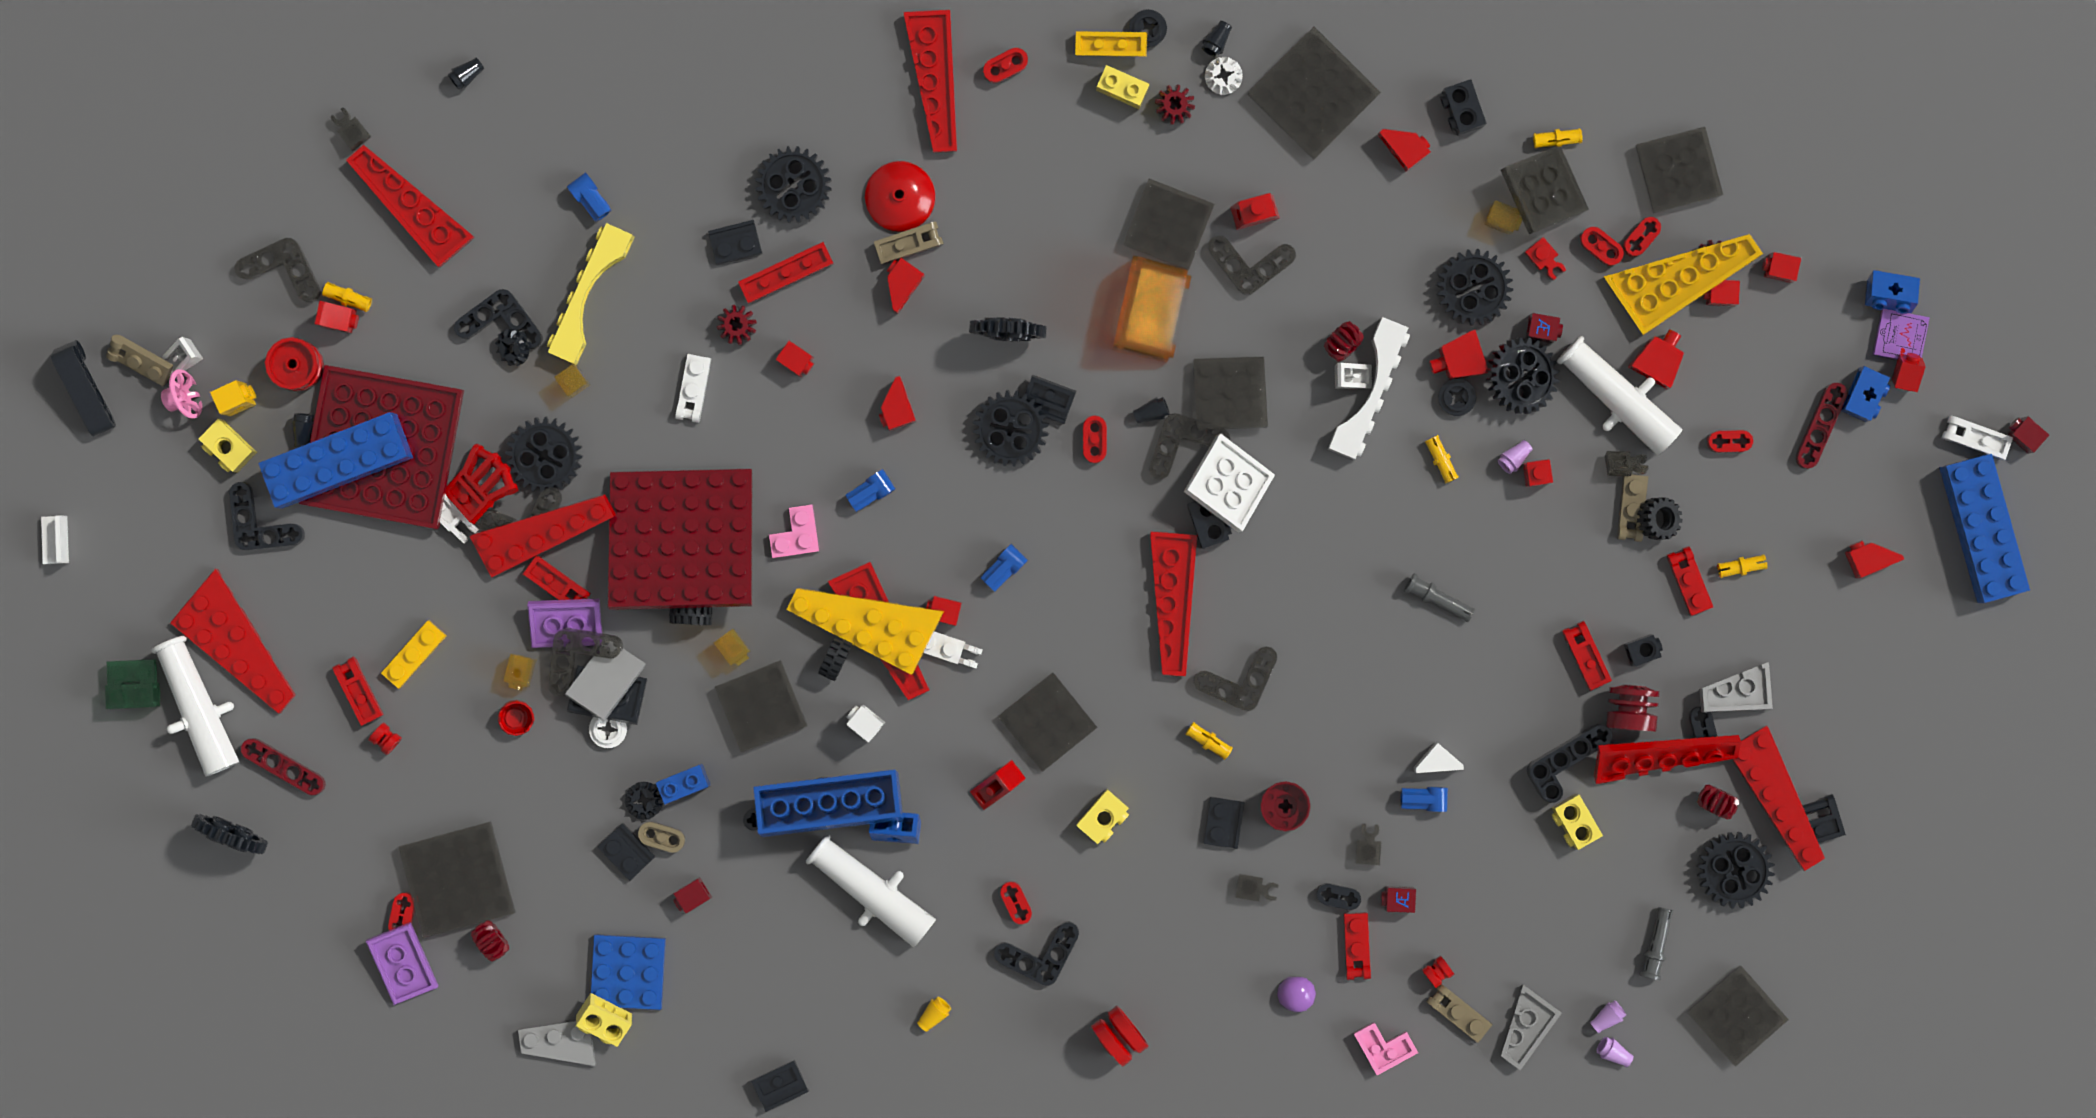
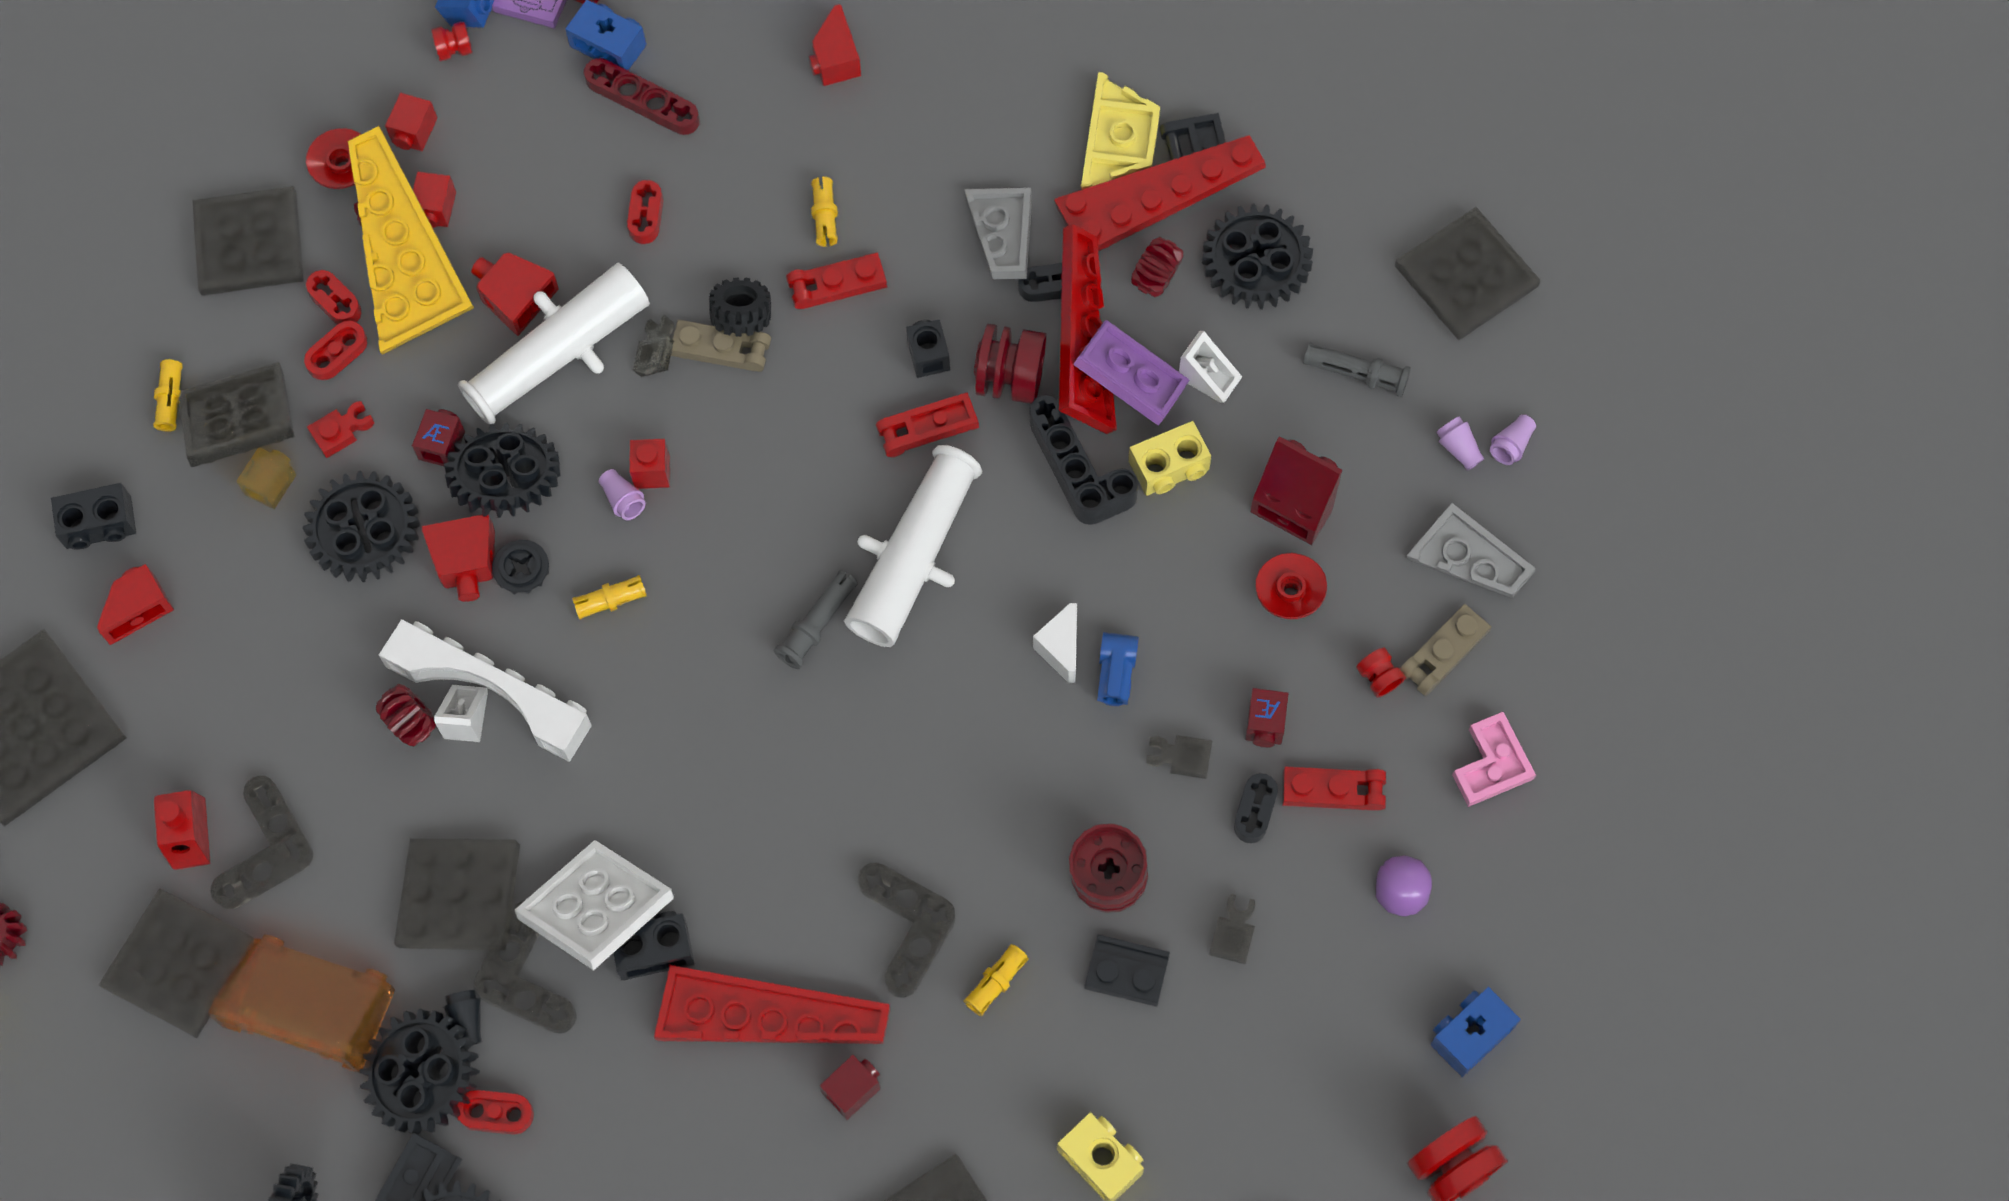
camera: 80 degrees left, 20 degrees down
(1128, 374) = (419, 1071): none -> black gear
(1132, 658) = (851, 1086): none -> dark red brick
(1212, 1055) = (1466, 1050): none -> blue brick
(1489, 655) = (912, 548): none -> white piece
(1504, 909) = (1295, 572): none -> red dish
(1555, 909) = (1297, 490): none -> dark red slope
(1635, 791) = (1131, 372): none -> medium lavender tile
(1645, 843) = (1208, 368): none -> white slope
(1753, 211) = (326, 154): none -> red dish
(1822, 766) = (1119, 133): none -> light yellow wing
(1850, 285) = (450, 41): none -> red wheel

